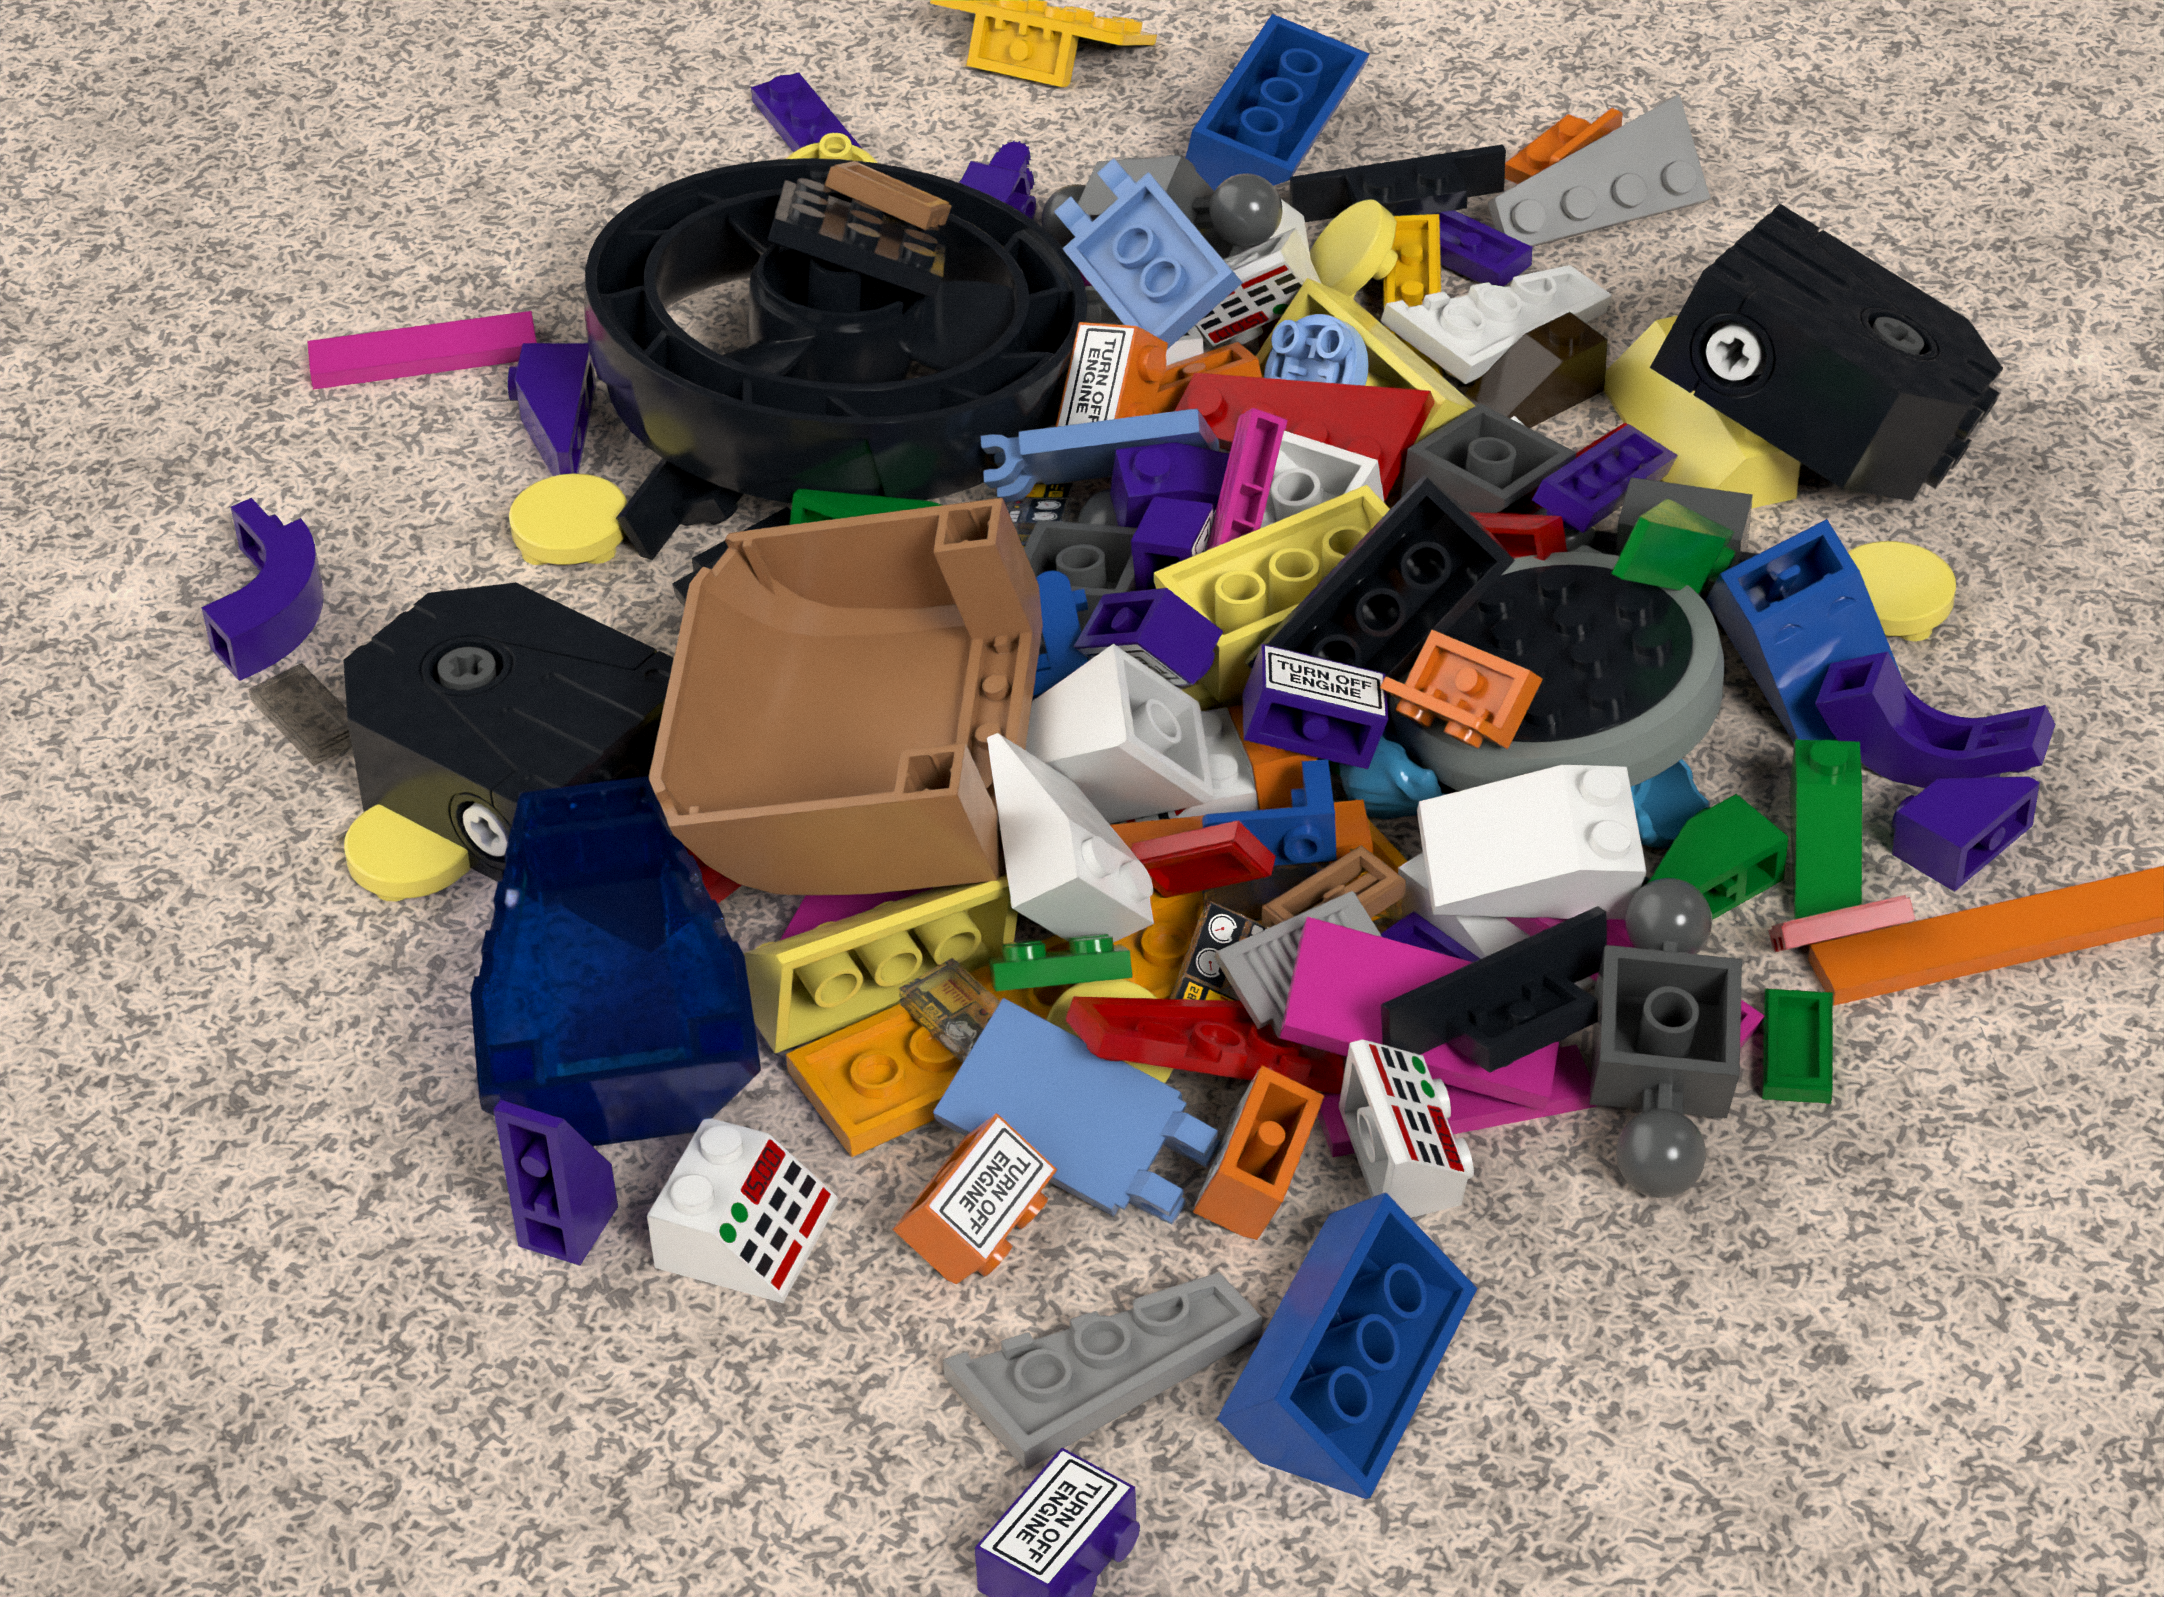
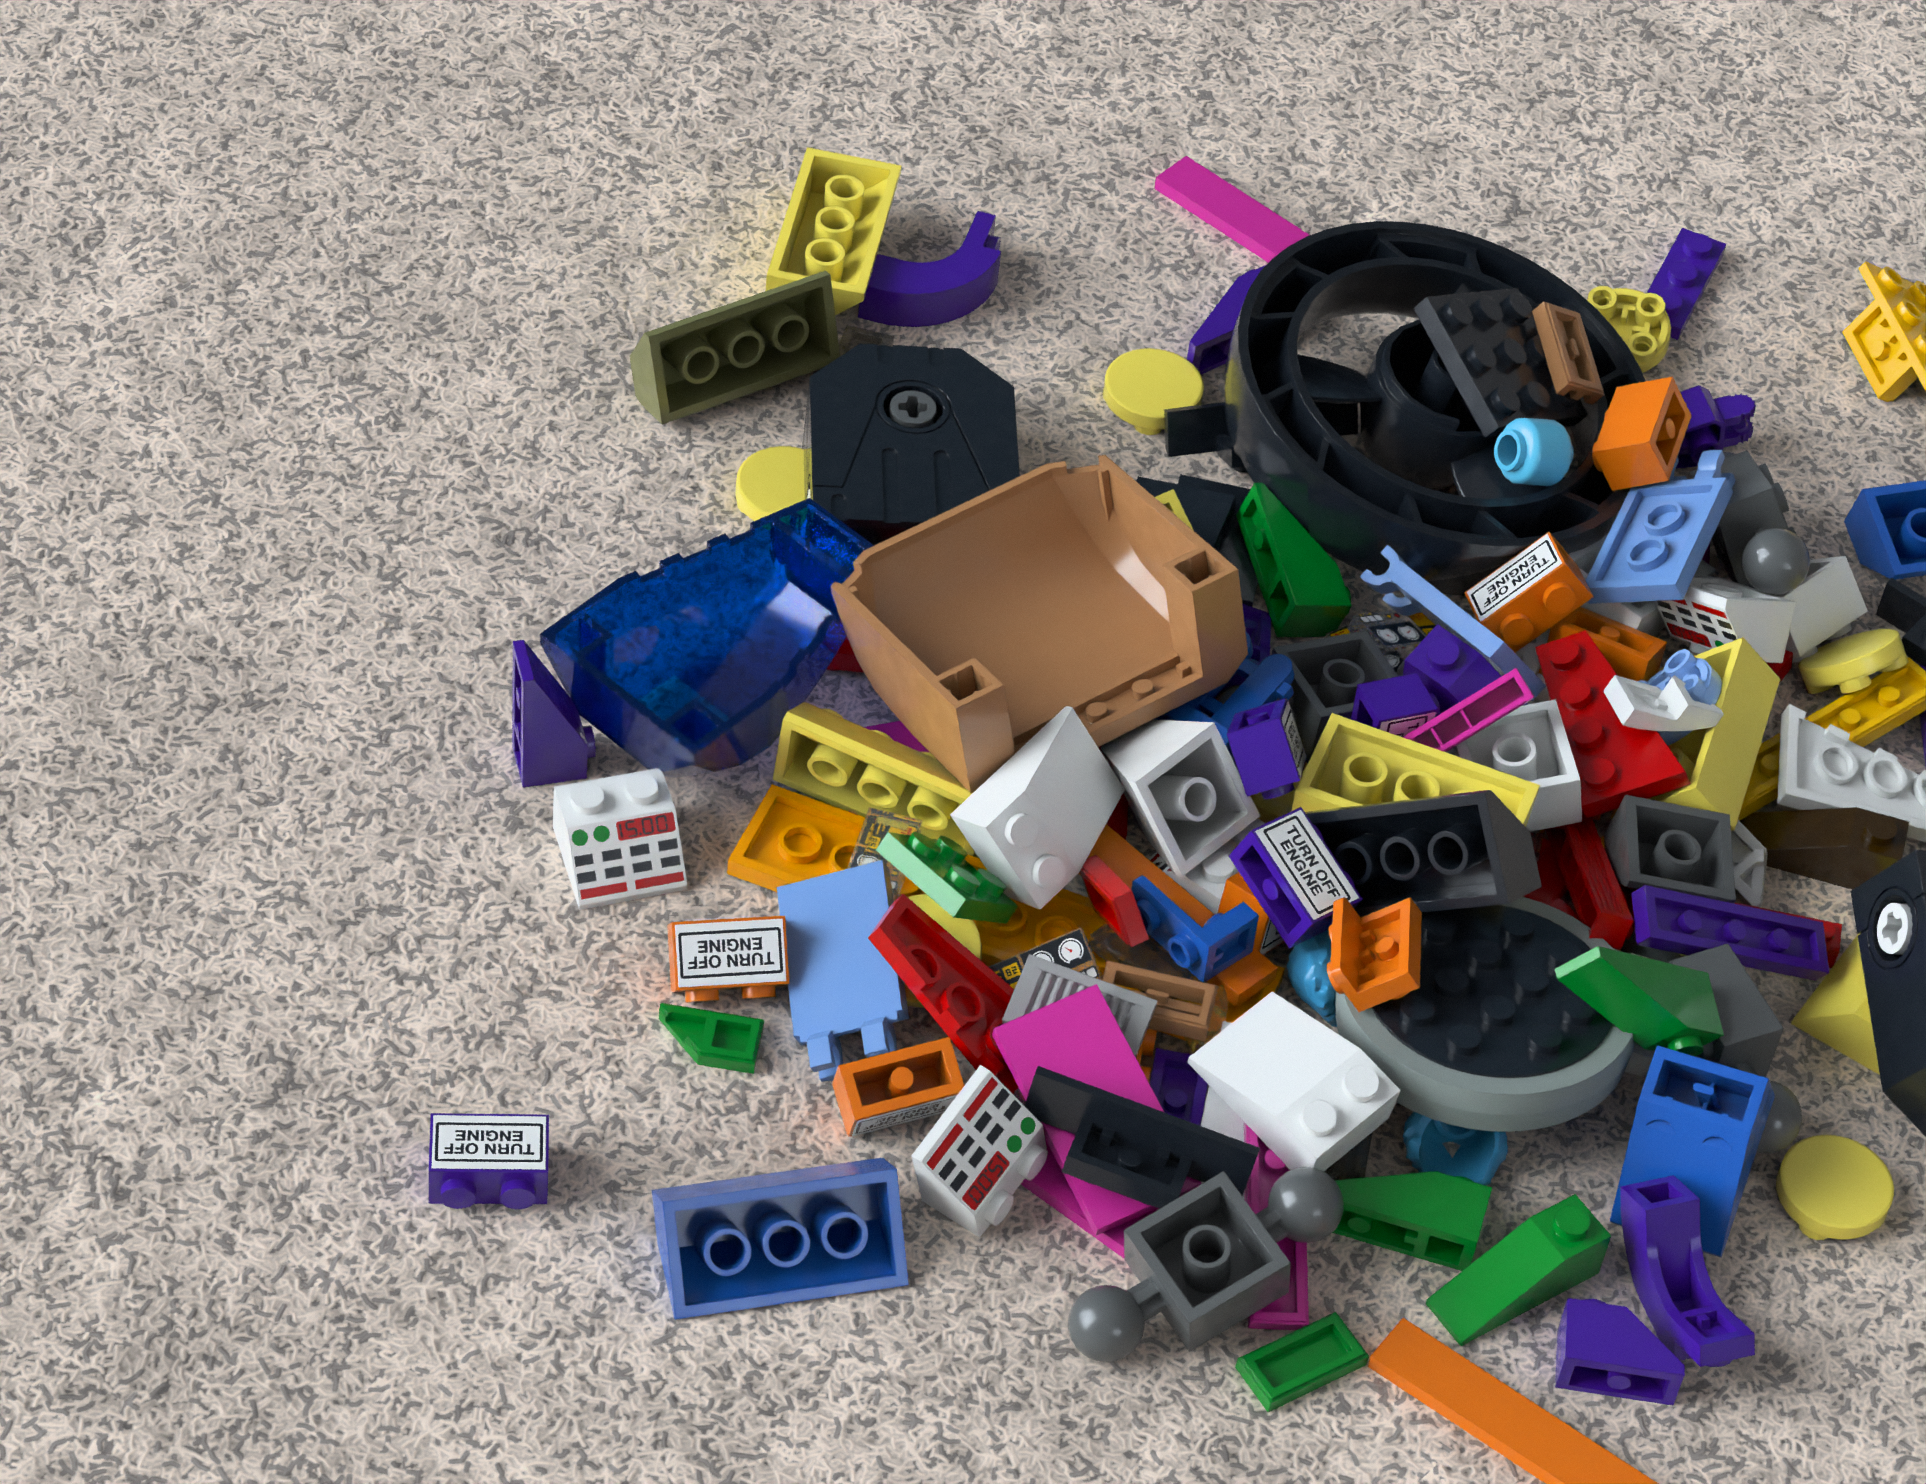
camera: 45 degrees right, 5 degrees up
(141, 631) = (835, 223): none -> light yellow slope
(215, 779) = (736, 349): none -> olive slope
(985, 276) = (1534, 451): none -> medium azure head
(1033, 201) = (1641, 434): none -> orange brick
(1048, 1276) = (715, 1037): none -> green tile
(1079, 1379) = (638, 1100): light grey wing -> none
(1345, 365) = (1652, 709): none -> white slope
(1841, 923) = (1434, 1324): tile -> none

